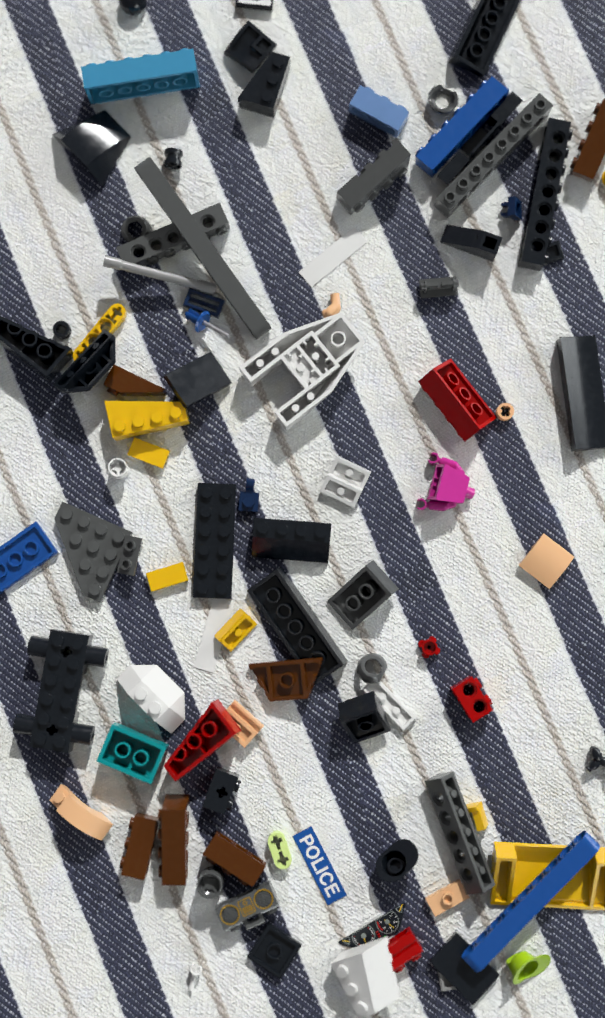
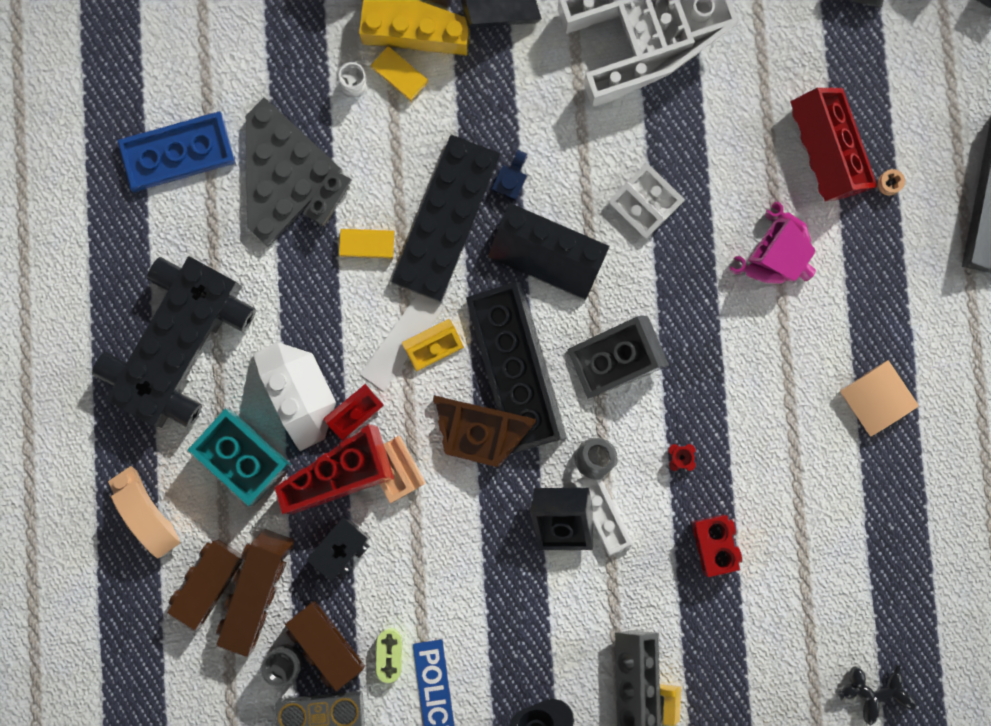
camera: 15 degrees right, 0 degrees up
(198, 694) = (353, 412): none -> red plate

